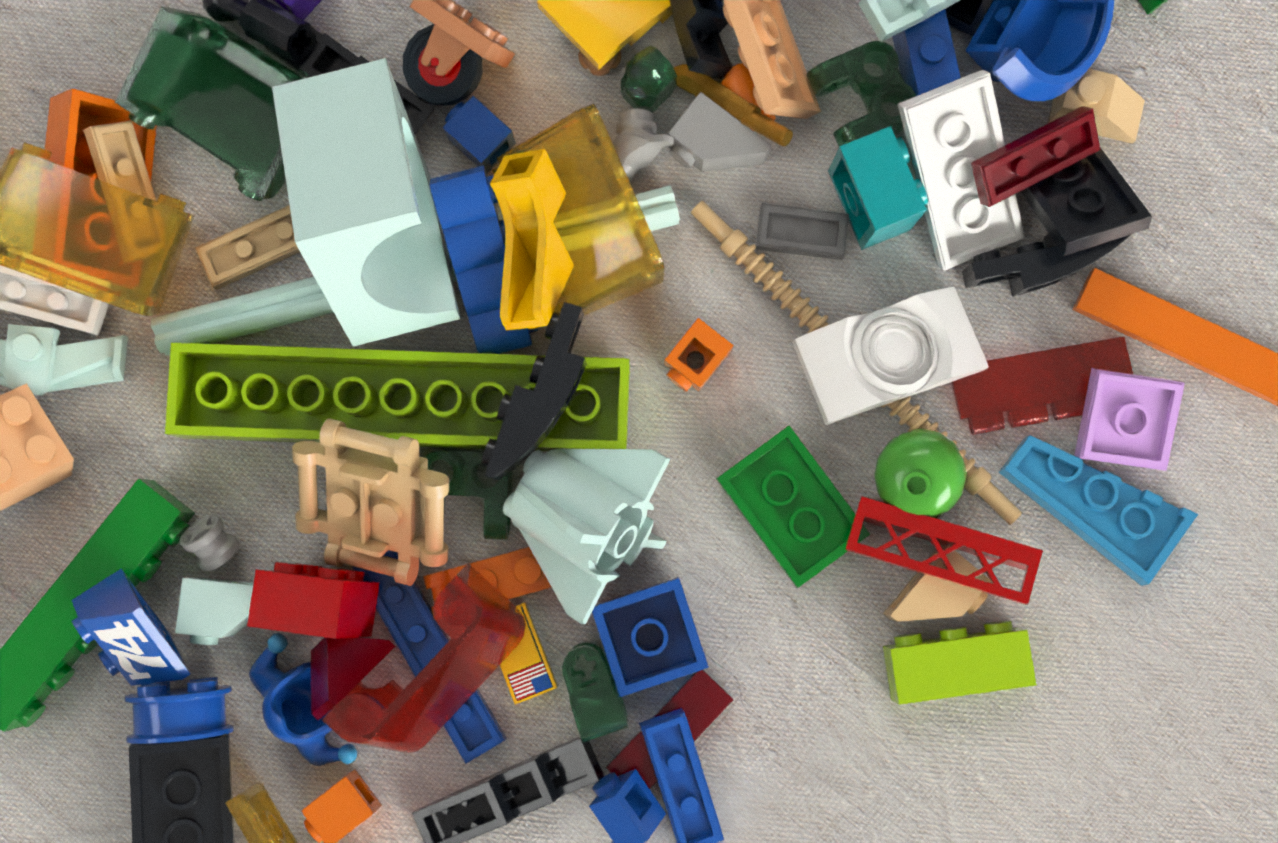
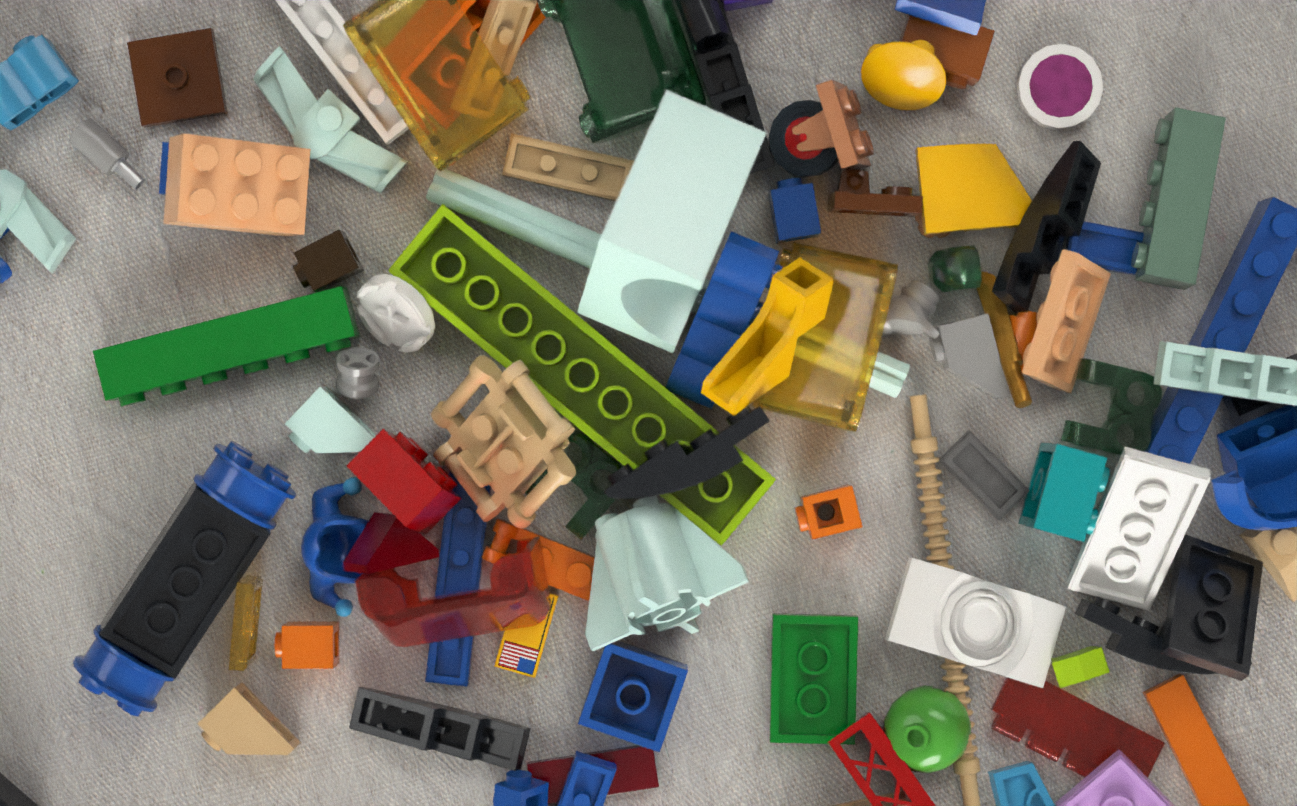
camera: 30 degrees right, 5 degrees up
(114, 468) = (327, 262): none -> dark brown brick
(127, 632) = (252, 399): blue slope -> none
(202, 466) = (395, 312): none -> white tile
(526, 80) = (854, 197): none -> reddish brown hinge
(595, 700) = (561, 708): clear green piece -> none
(1004, 325) = (1080, 666): none -> lime piece
(1036, 156) = (1201, 561): dark red tile -> none

